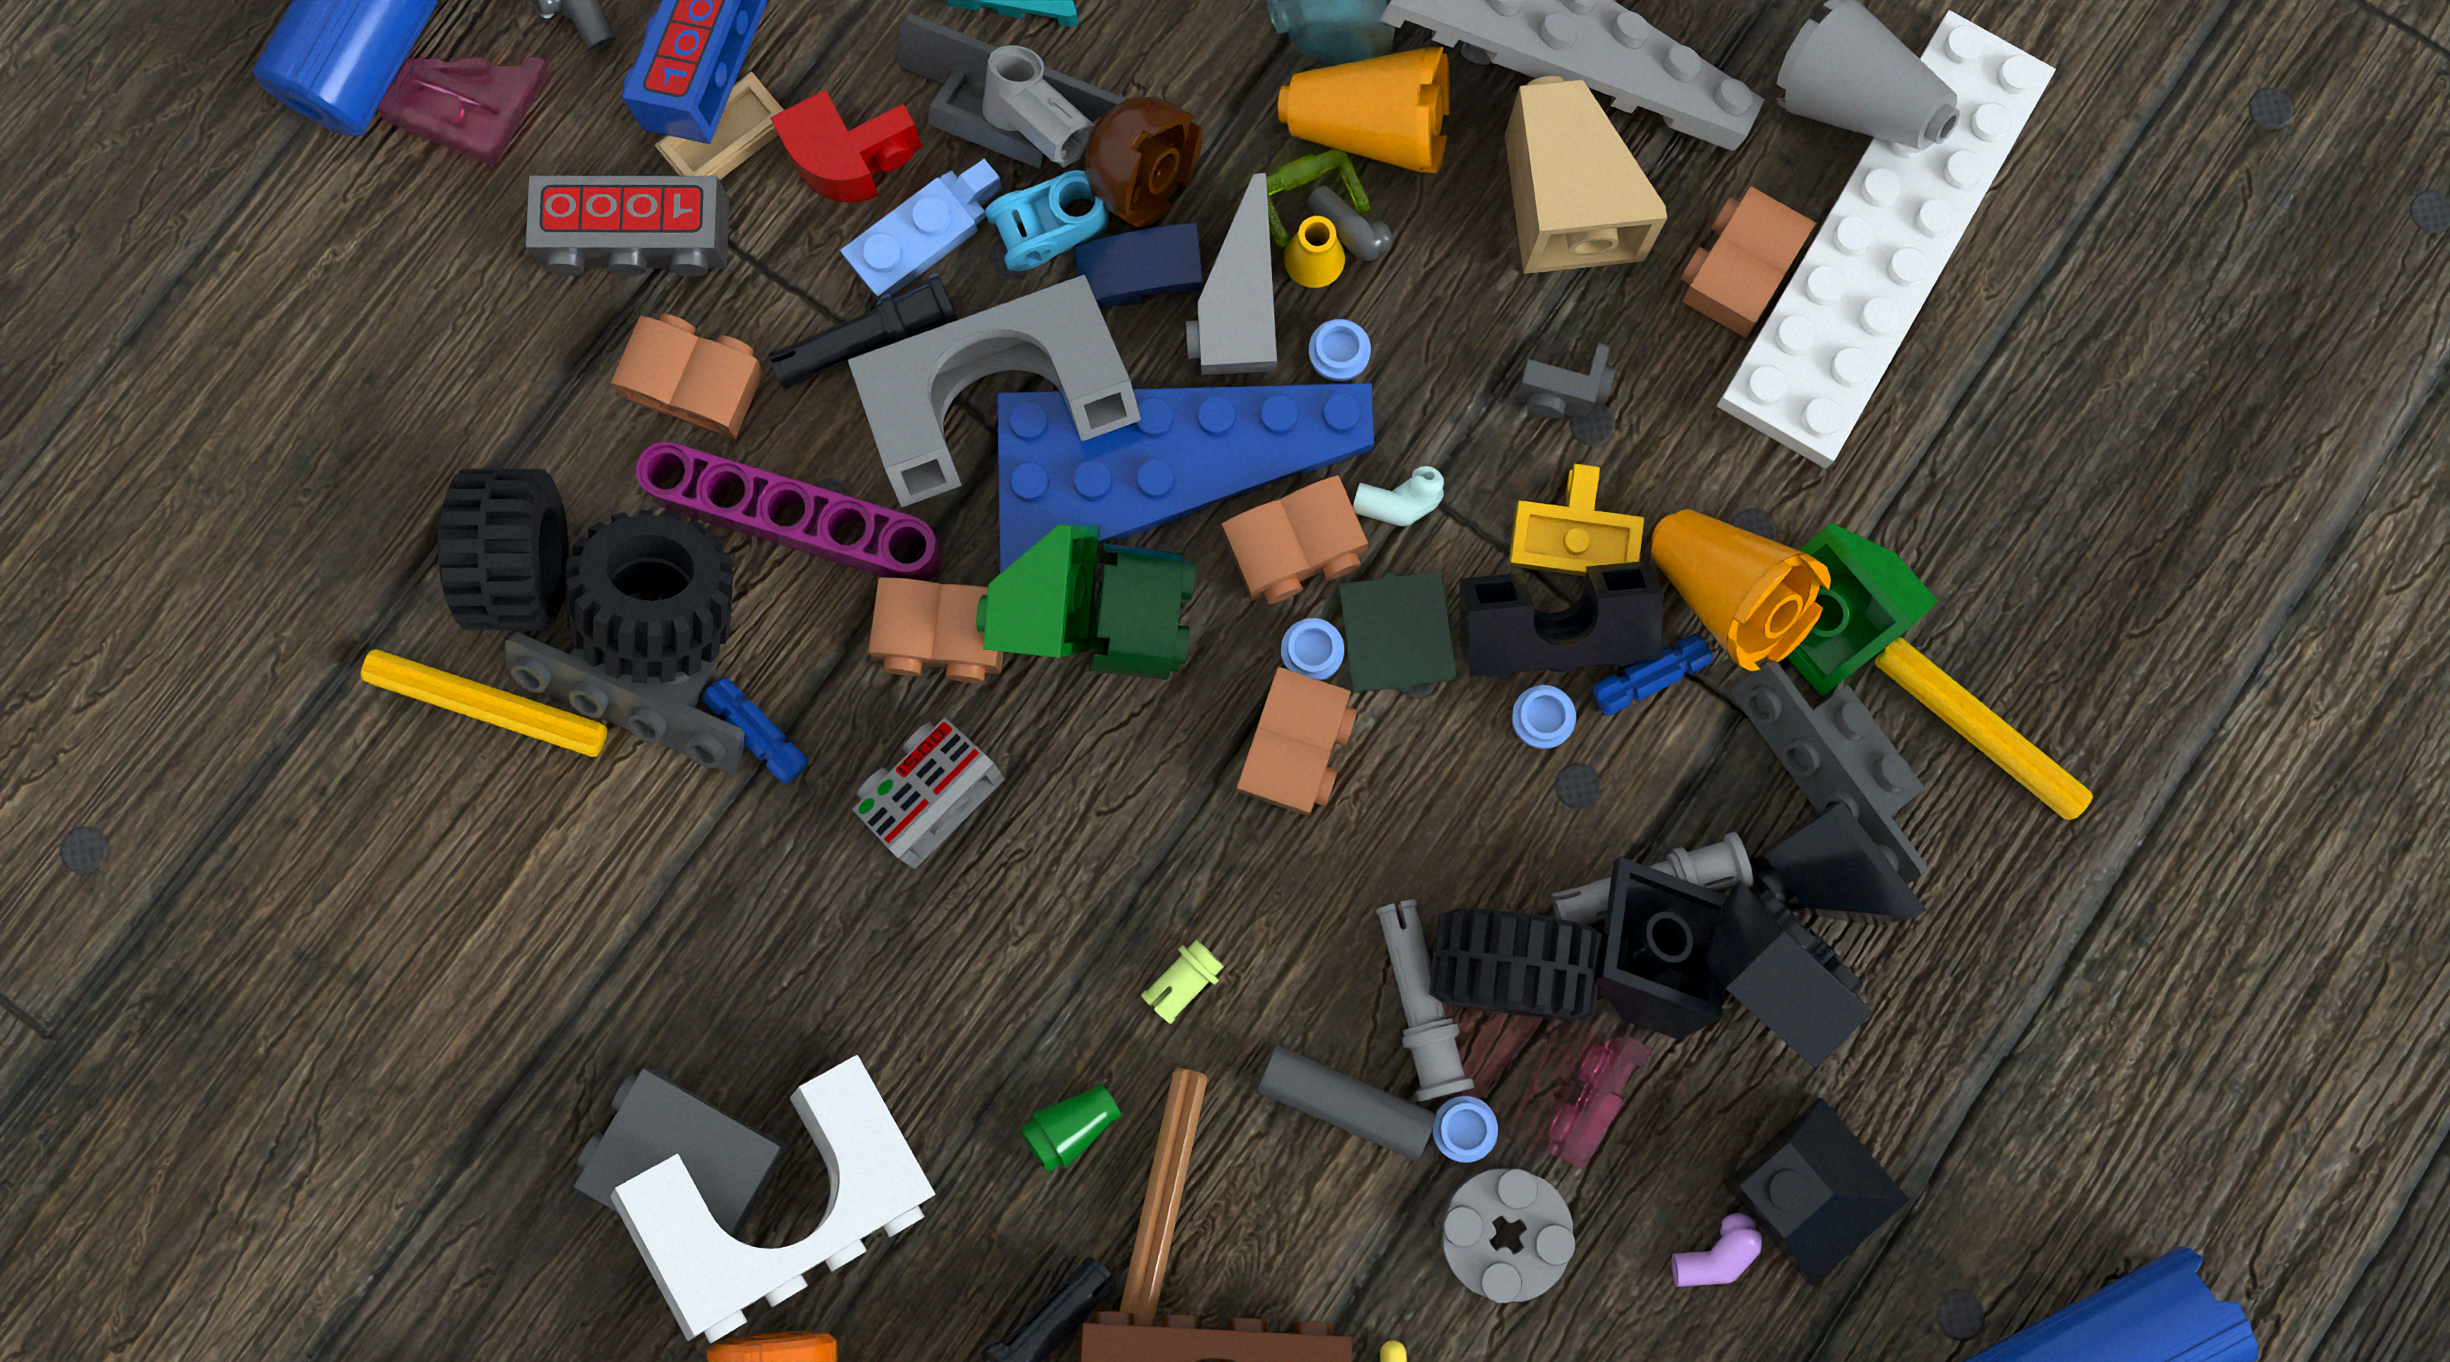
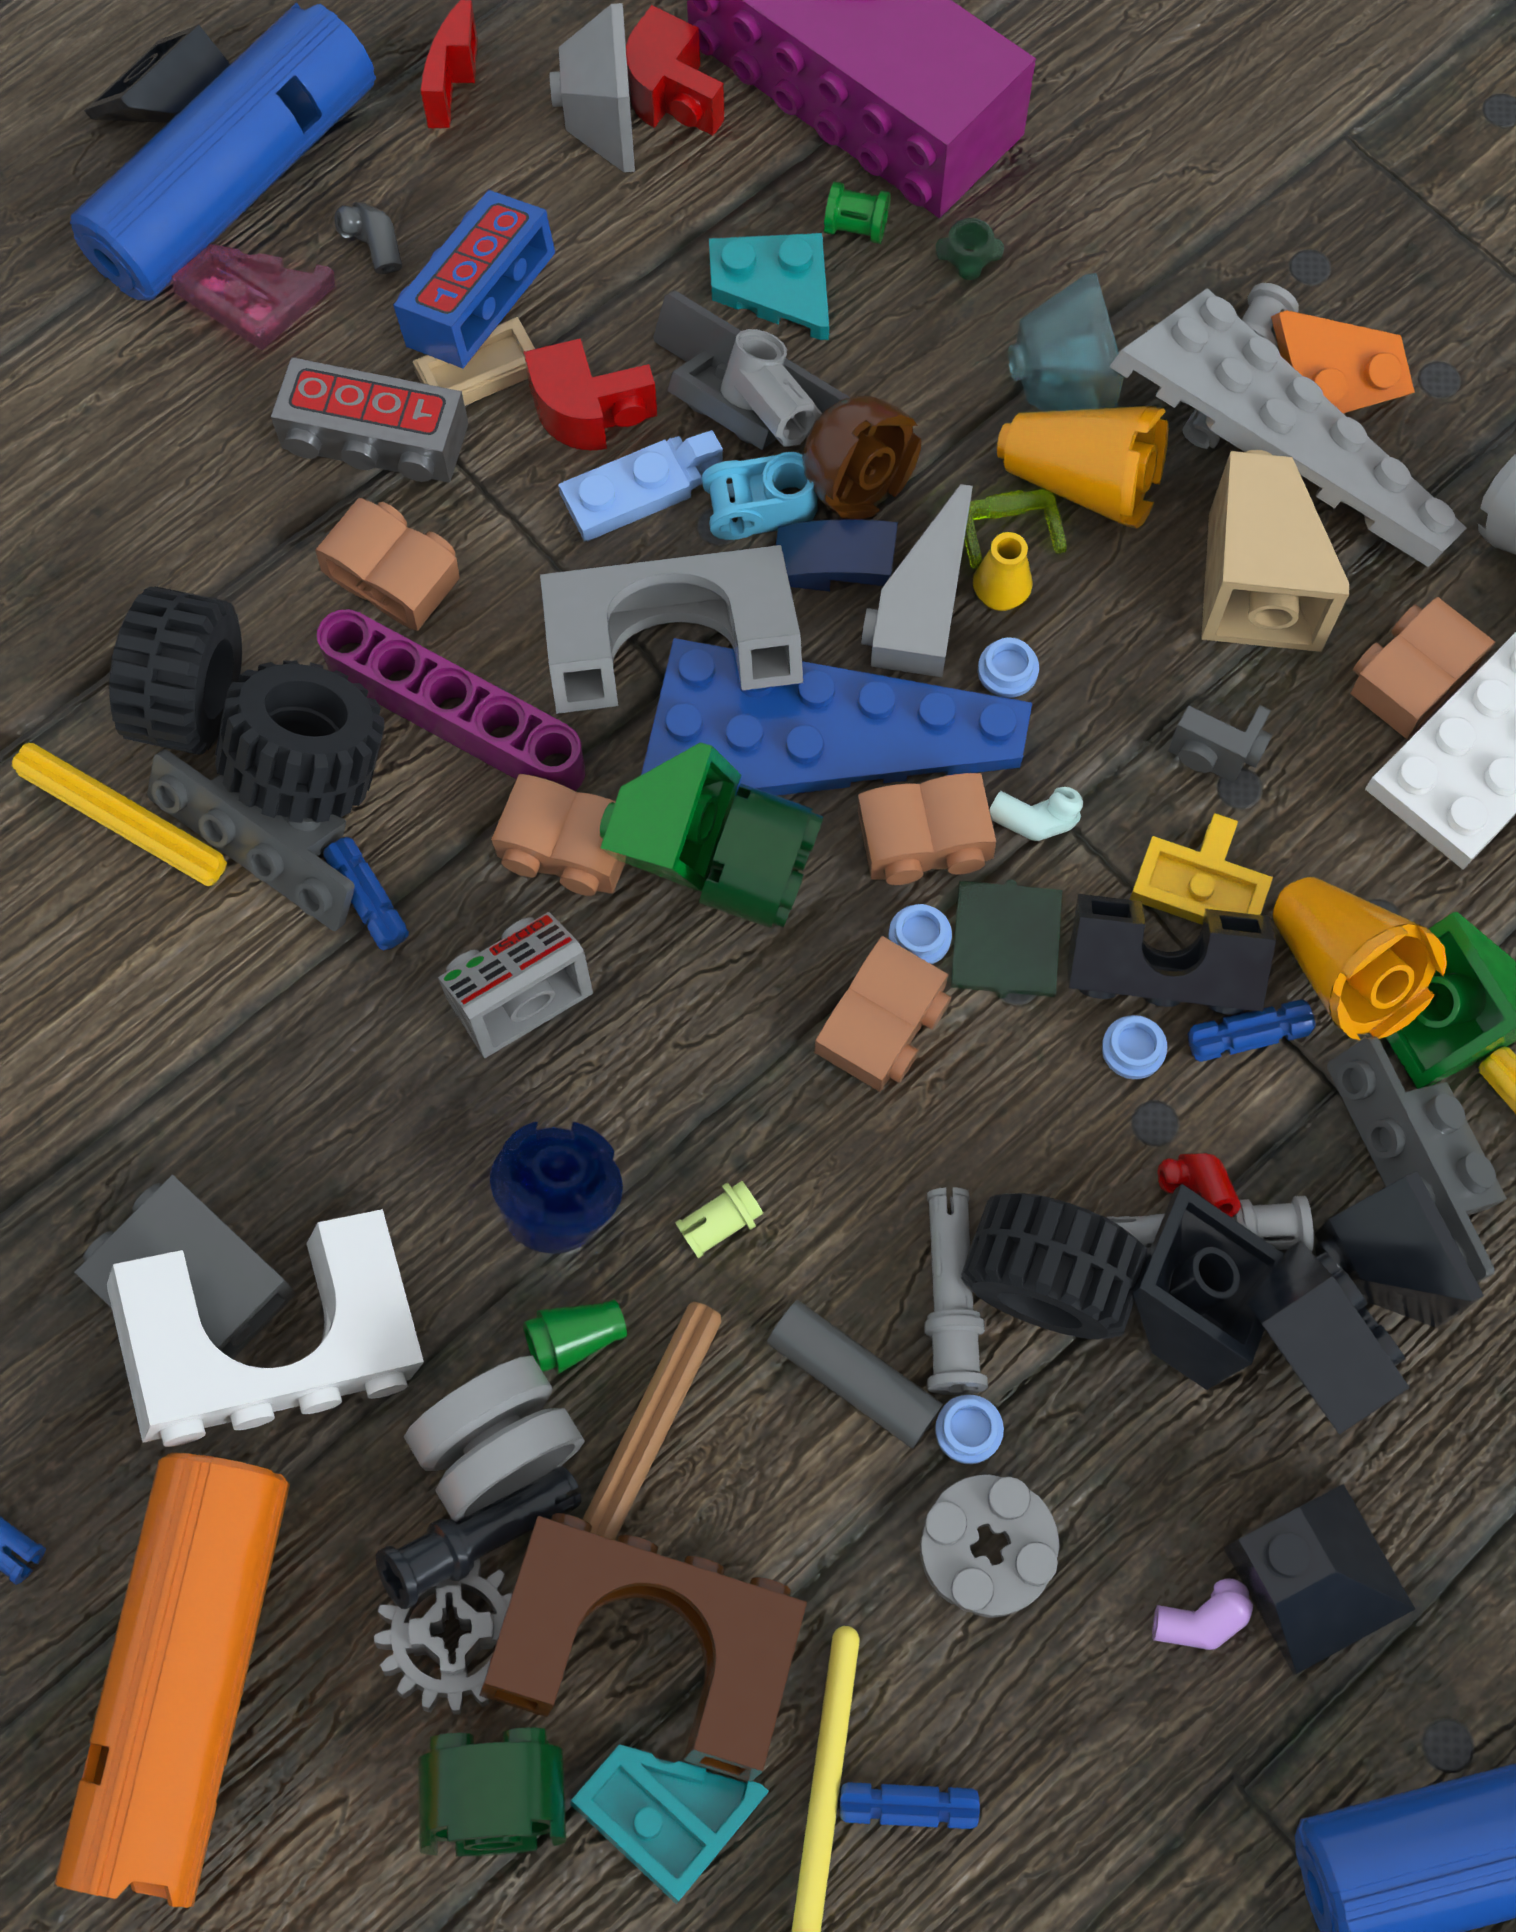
camera: 15 degrees right, 10 degrees down
(887, 324) = (591, 550): black pin -> none
(1020, 991) = (555, 1186): none -> clear blue cone
(1021, 1254) = (493, 1436): none -> light grey wheel
(1354, 232) = (1045, 563): dark grey arm -> none
(1605, 1071) = (1122, 1405): clear pink wing -> none
(1634, 834) = (1204, 1176): none -> red arm

